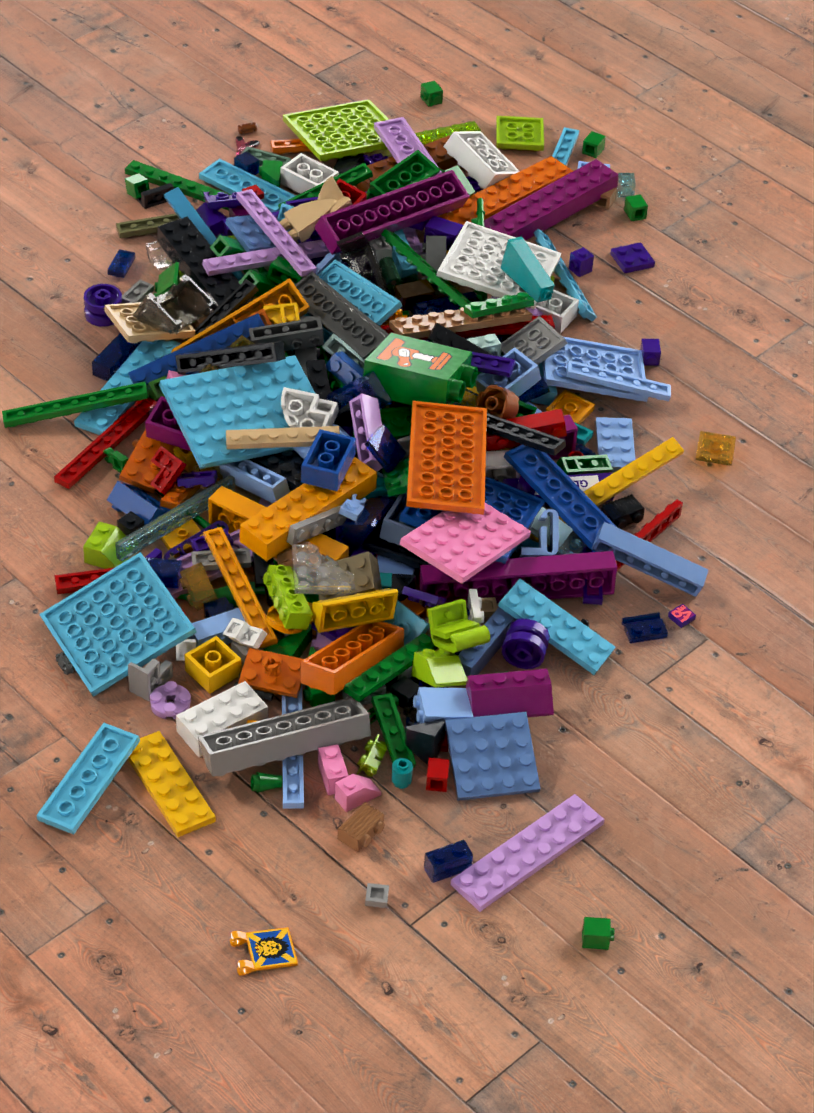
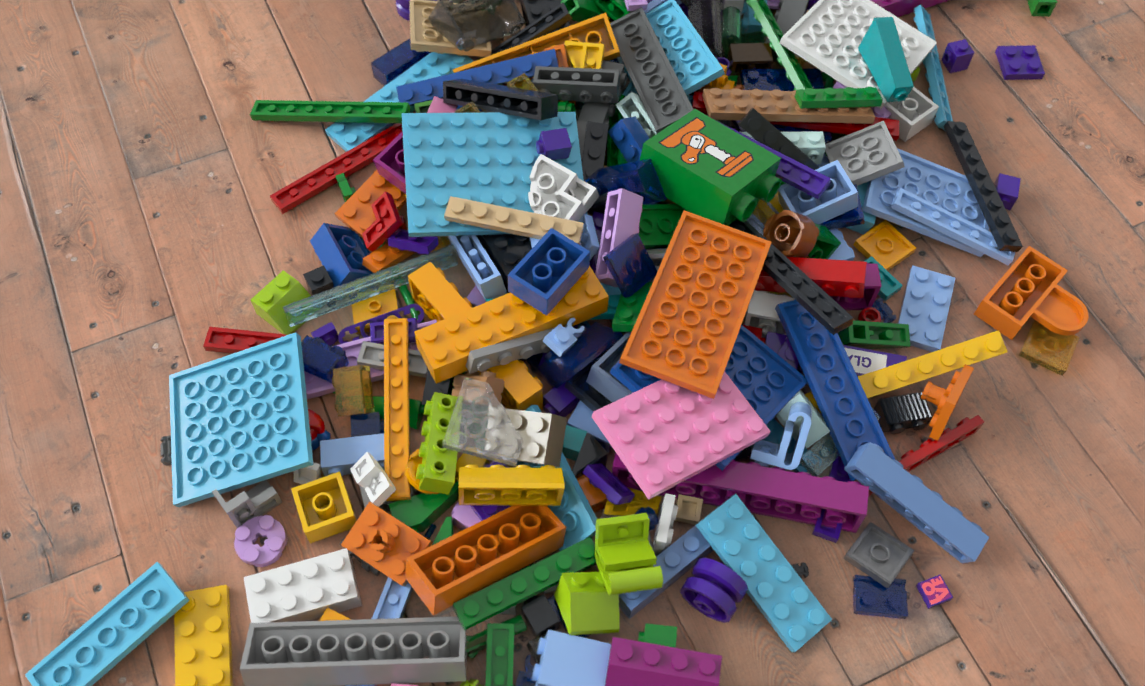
camera: 20 degrees right, 15 degrees up
(291, 377) = (554, 144): none -> dark purple brick
(631, 349) = (983, 187): none -> black plate
(635, 601) = (878, 554): none -> flat silver plate
(650, 492) = (945, 399): none -> orange plate
(690, 412) = (1032, 292): none -> orange brick

